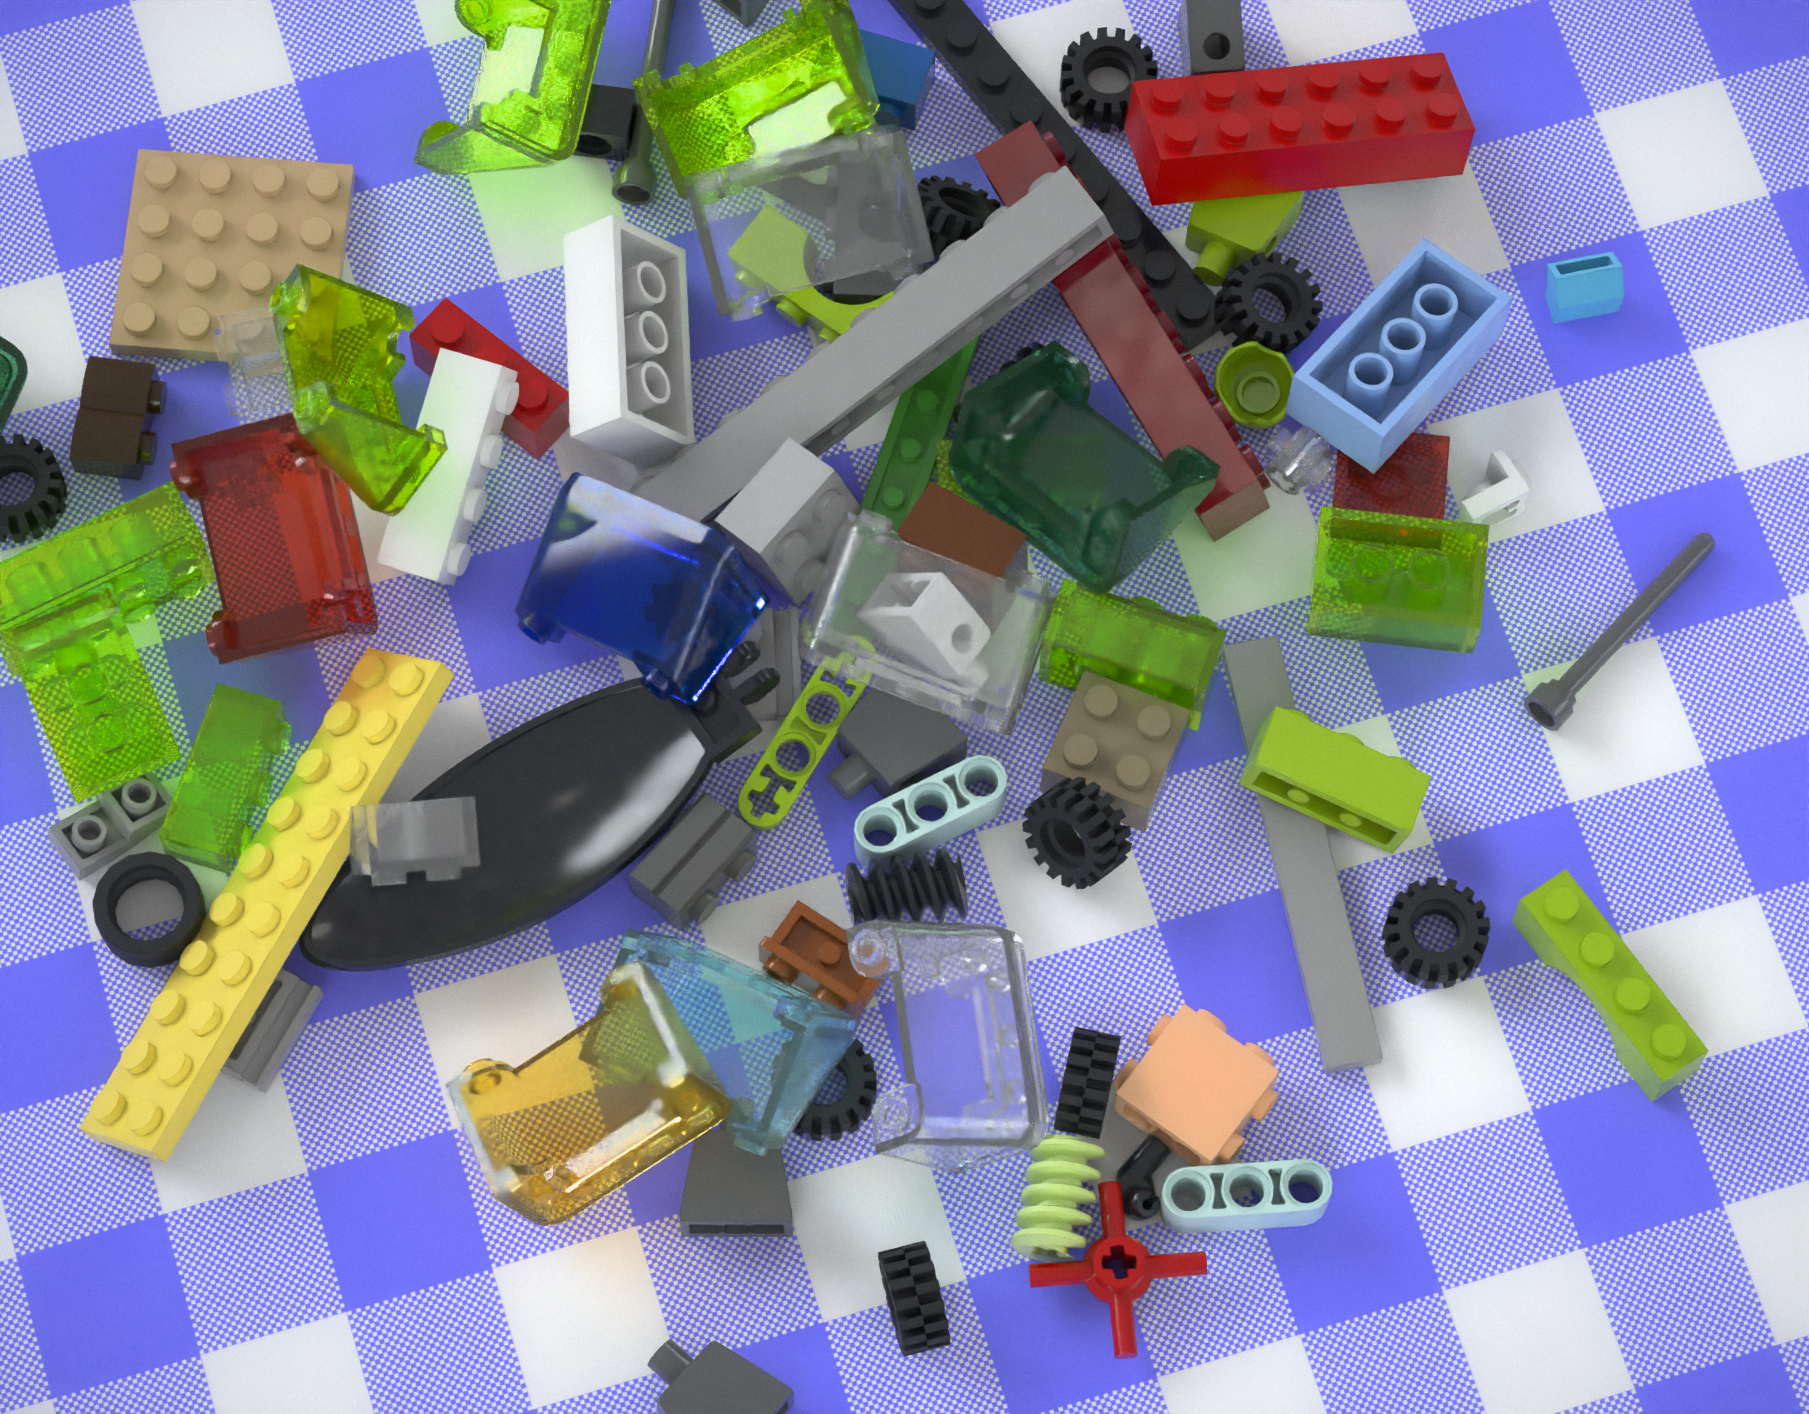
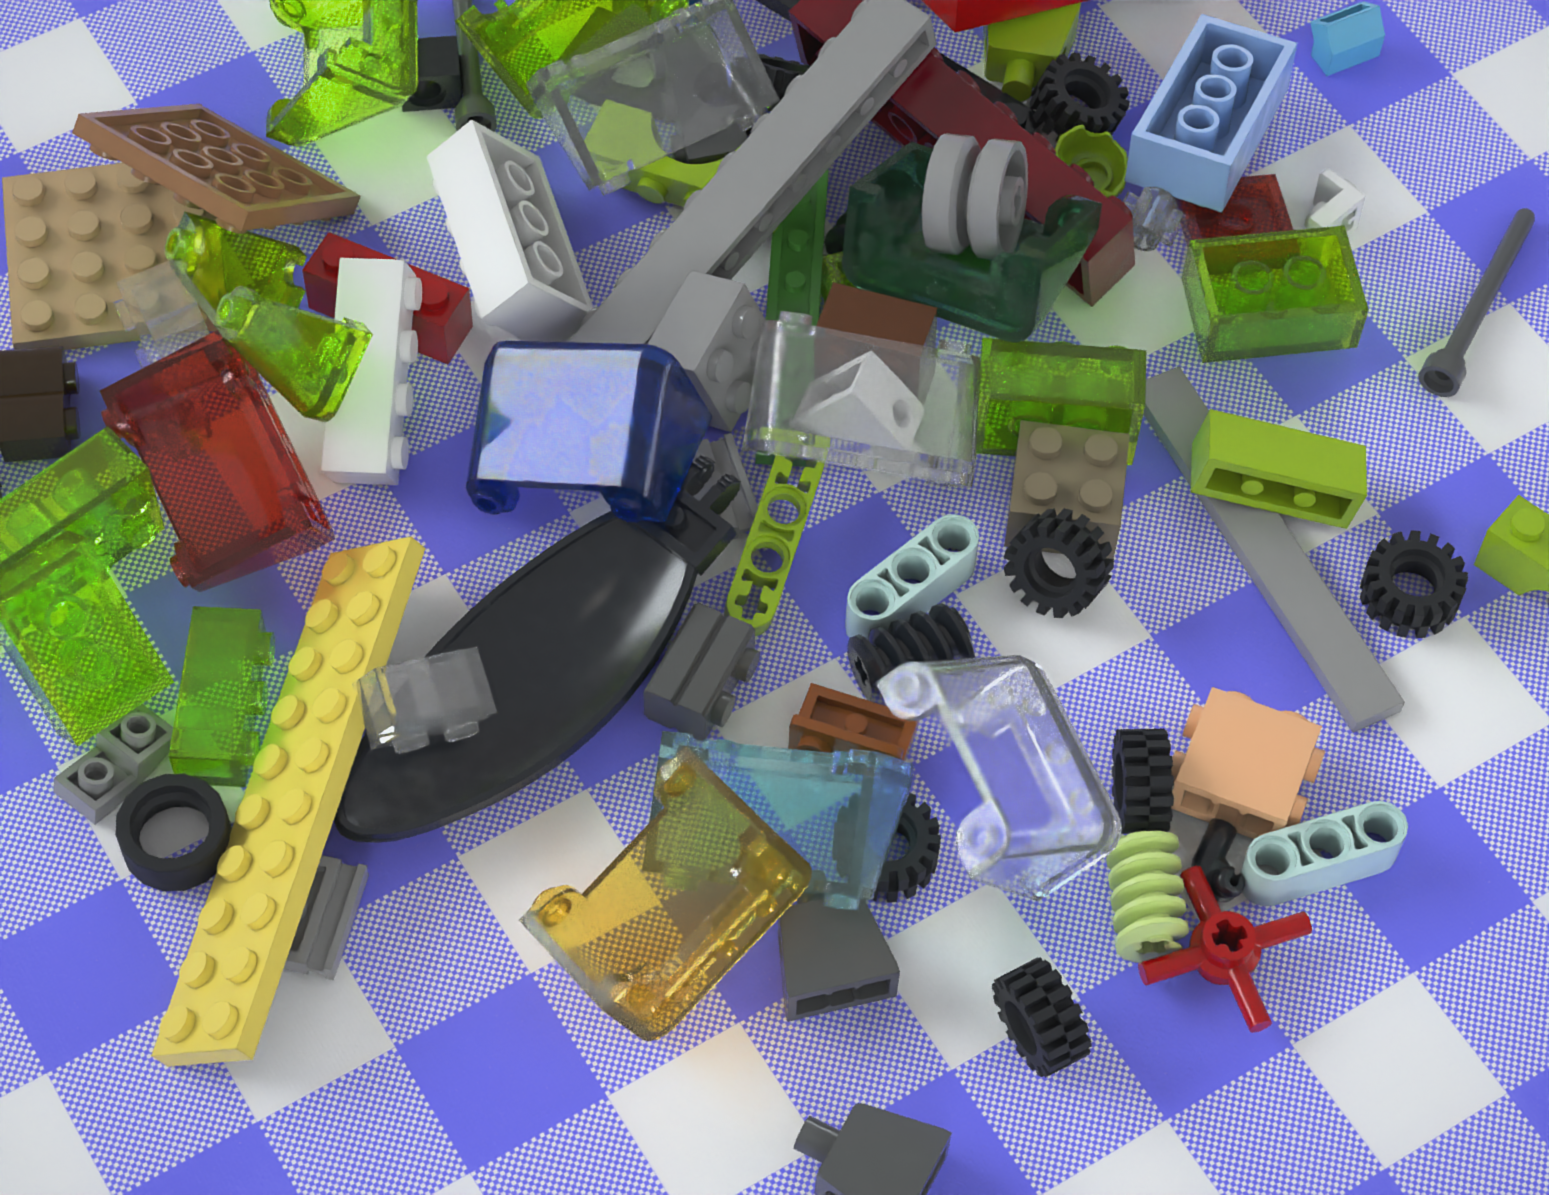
camera: 15 degrees left, 10 degrees down
(350, 200) = (215, 166): none -> medium nougat plate
(893, 745) = (858, 524): dark grey torso -> none
(1092, 428) = (974, 196): none -> light grey wheel

